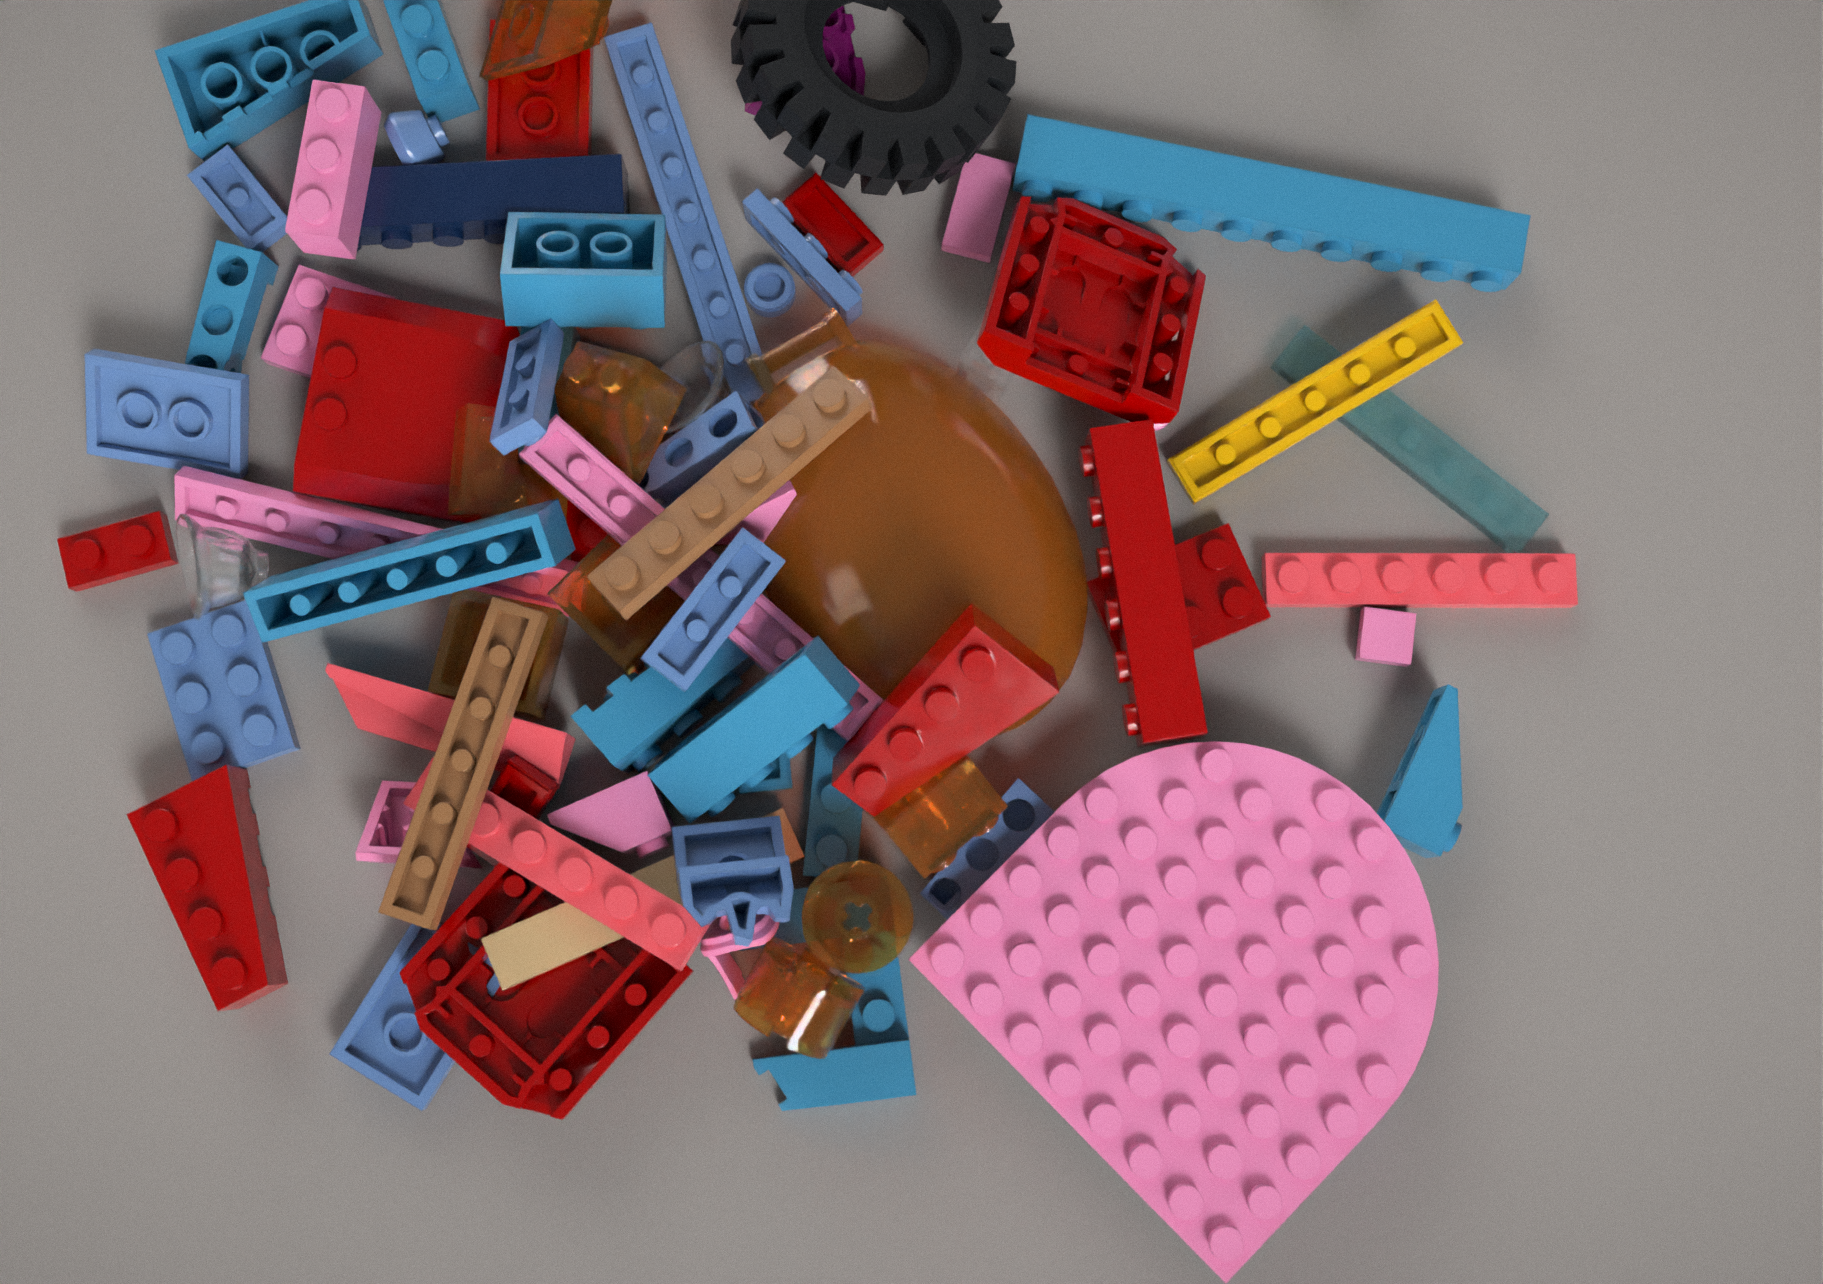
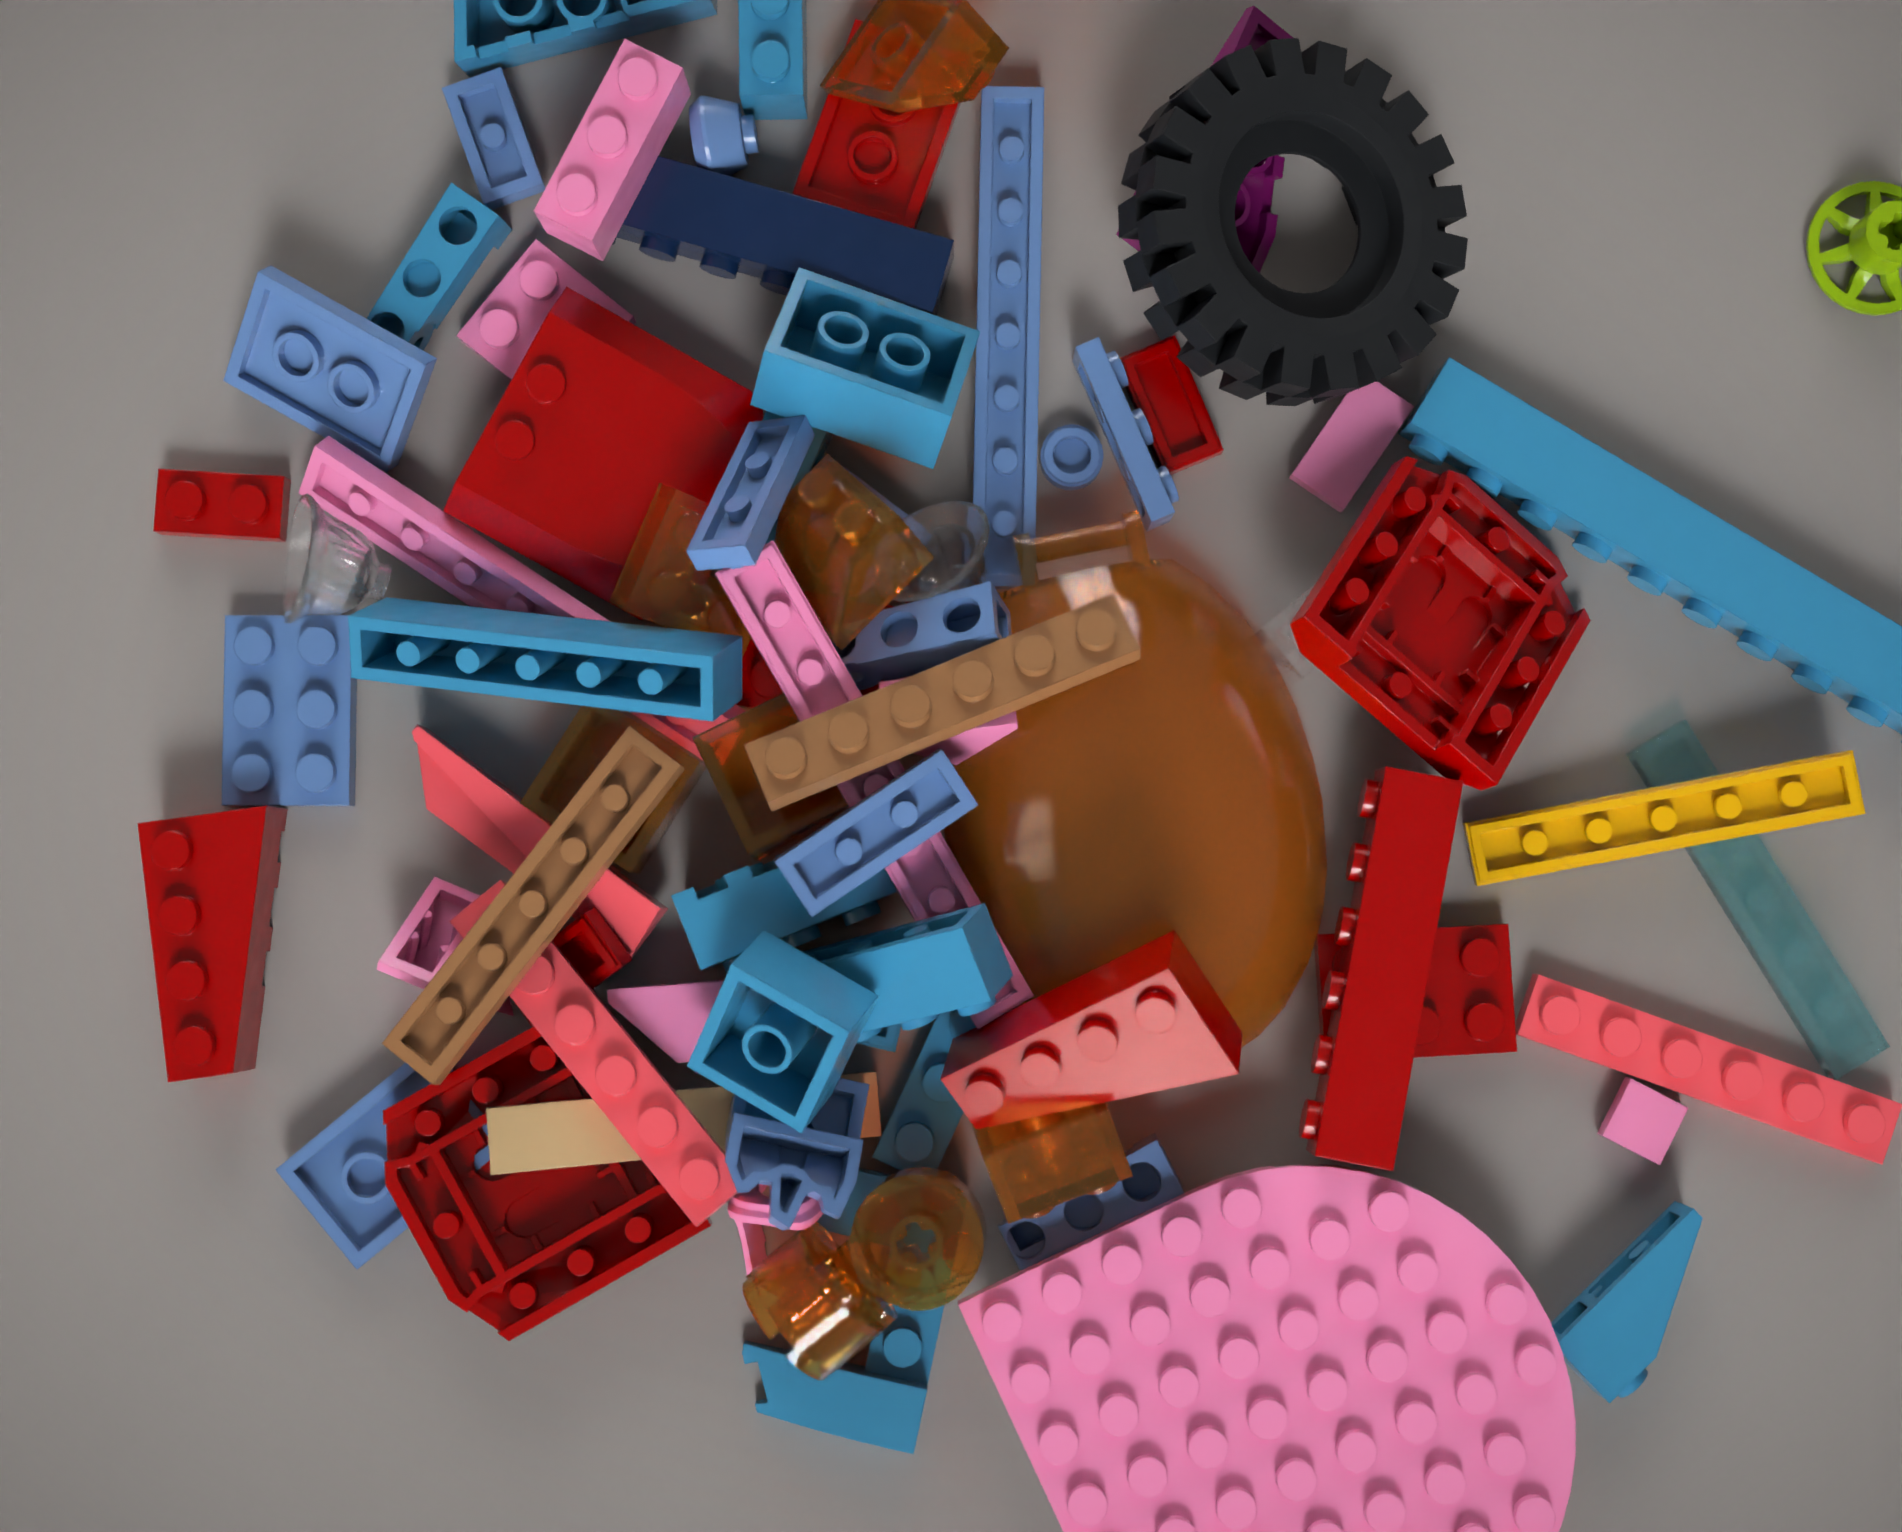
camera: 25 degrees right, 5 degrees up
(693, 789) = (782, 1030): none -> dark azure brick

